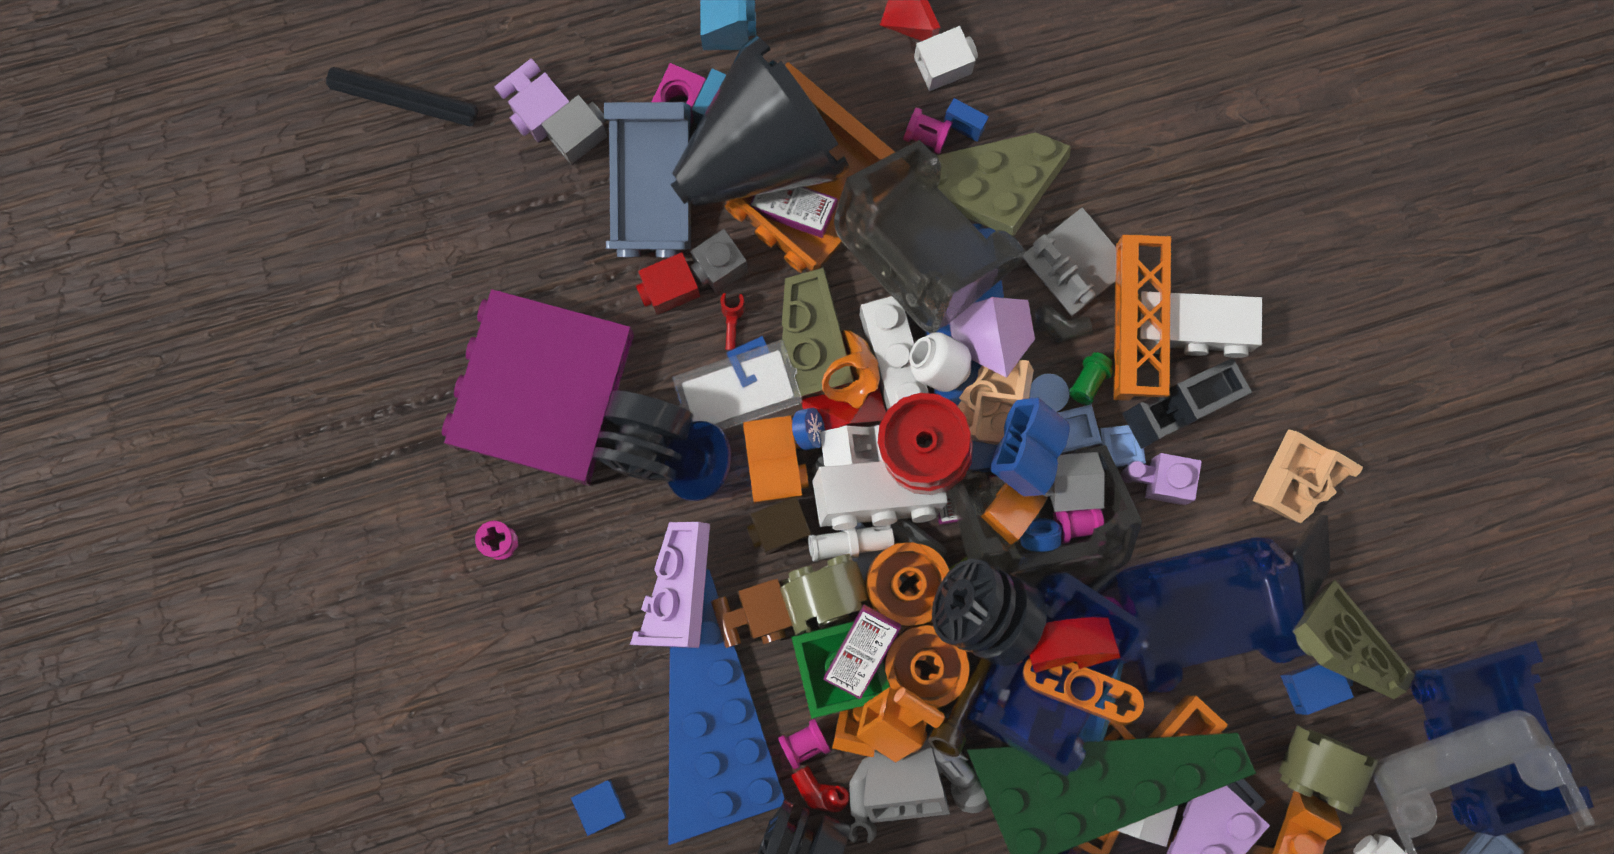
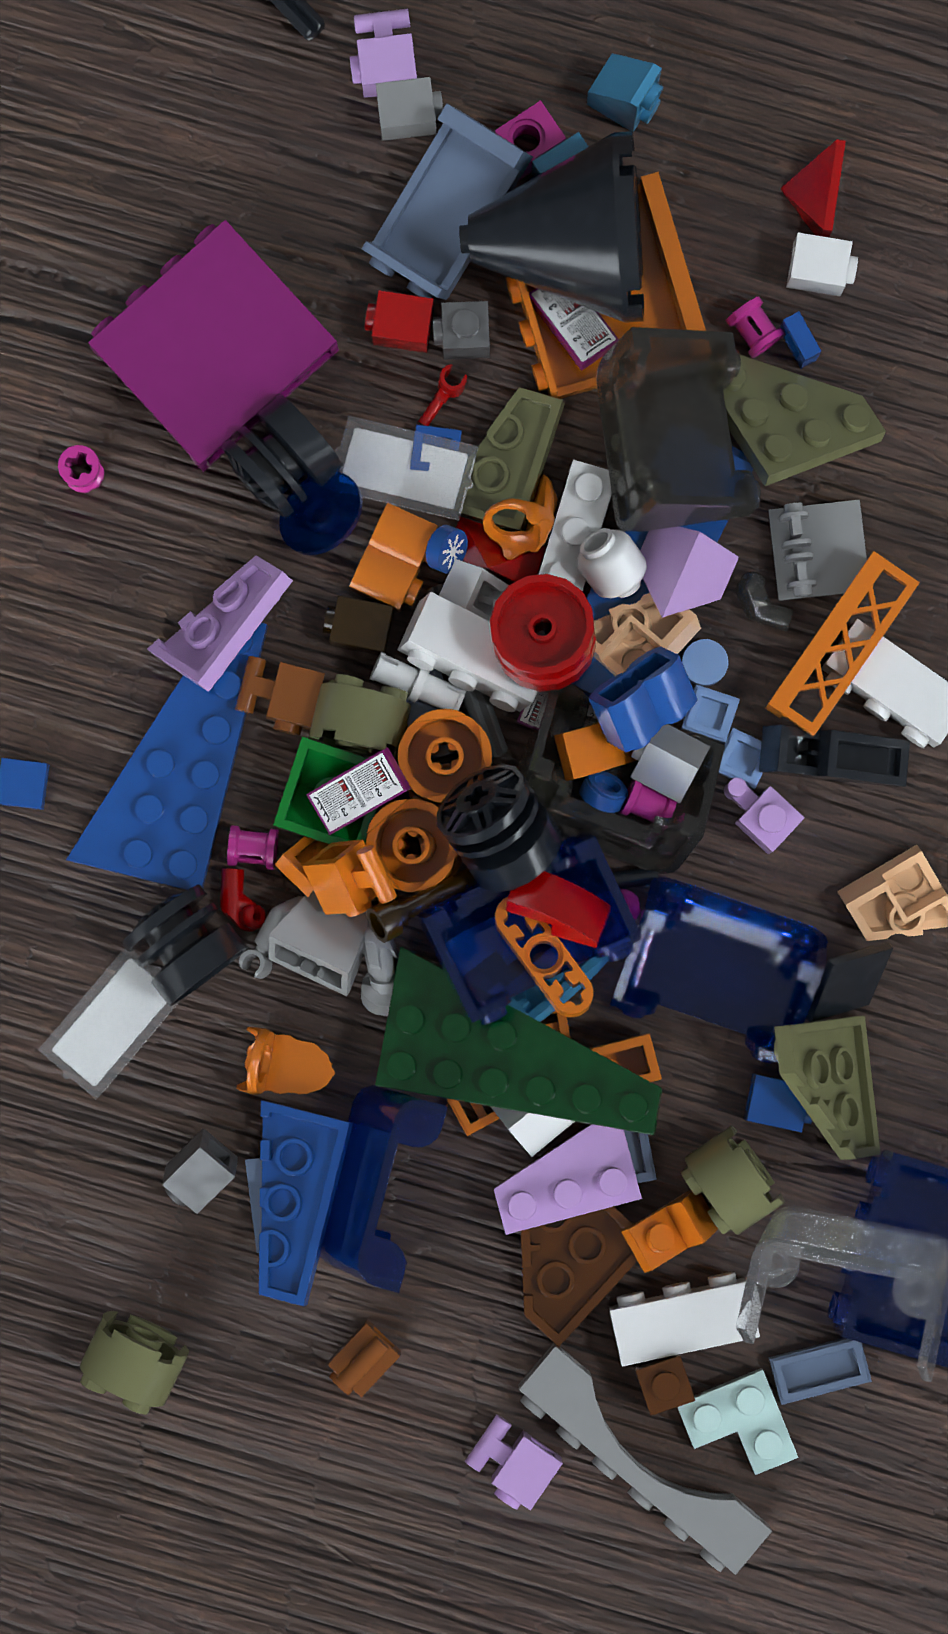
camera: 35 degrees right, 5 degrees up
(1095, 371) = (756, 673): green pin -> none

